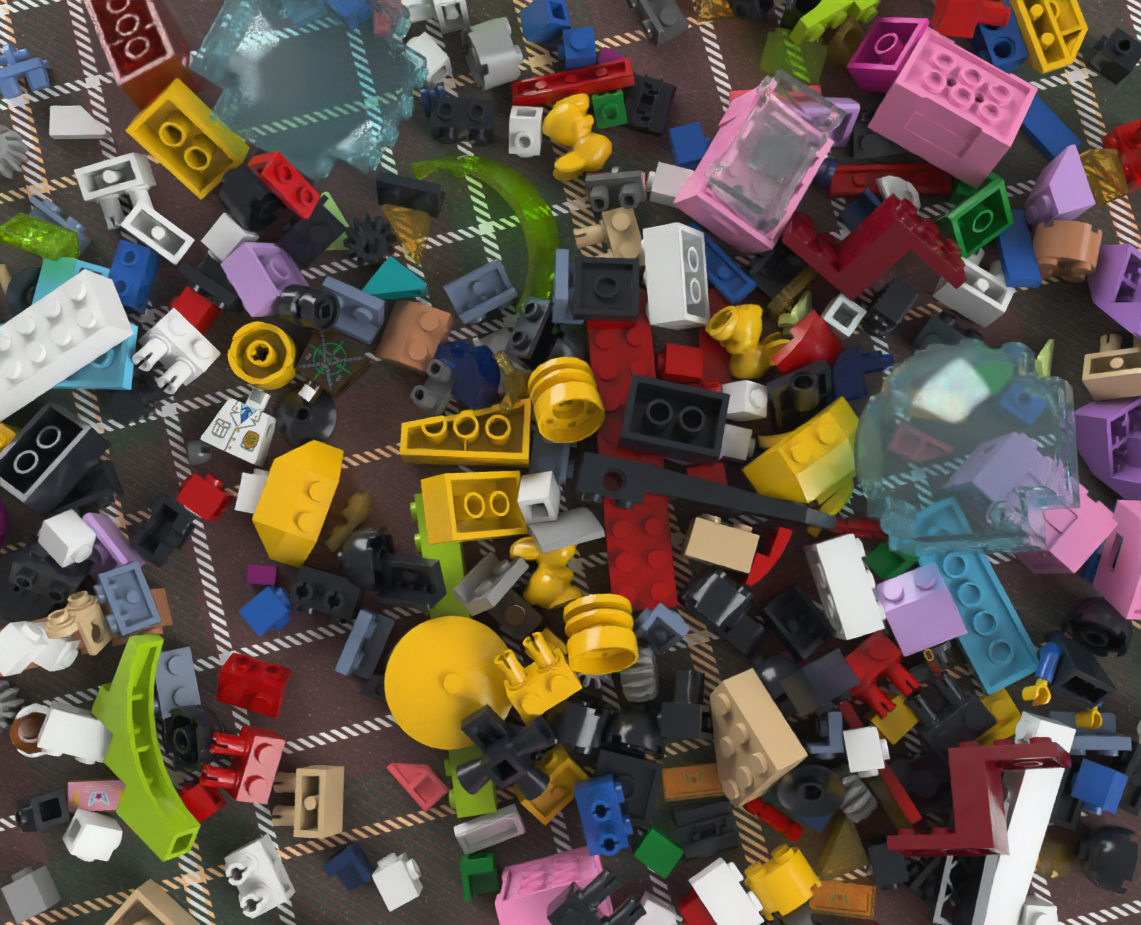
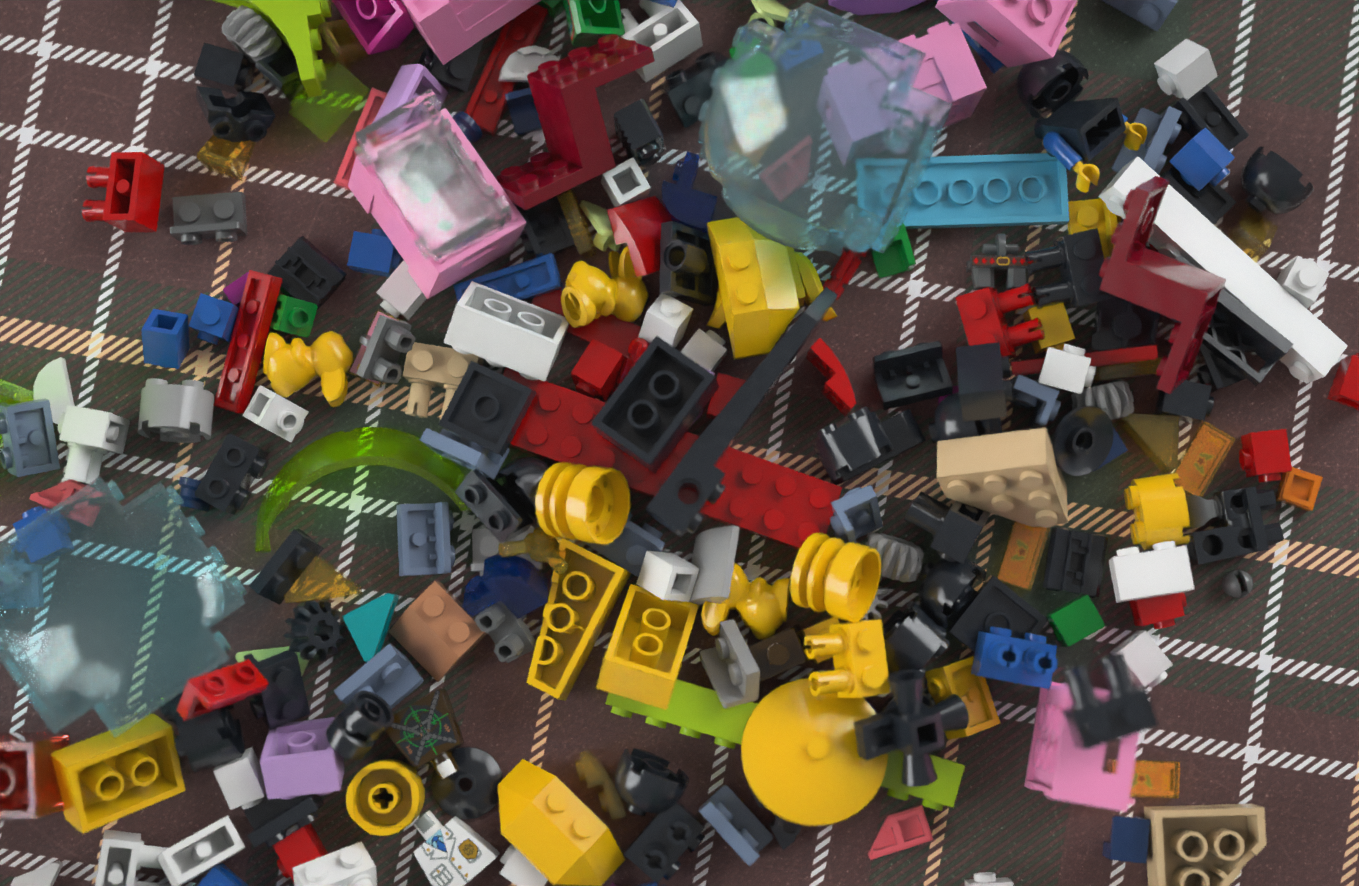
camera: 65 degrees left, 0 degrees up
(411, 582) = (694, 746): black bracket -> none
(437, 60) = (143, 476): white brick -> none
(479, 874) = (1019, 812): green panel -> none
(489, 829) = (979, 781): white tile -> none
(720, 545) = (800, 416): tan brick -> none
(774, 819) = (1095, 489): red axle -> none
(845, 586) = (897, 310): white brick -> none
(920, 609) = (954, 248): lavender slope -> none

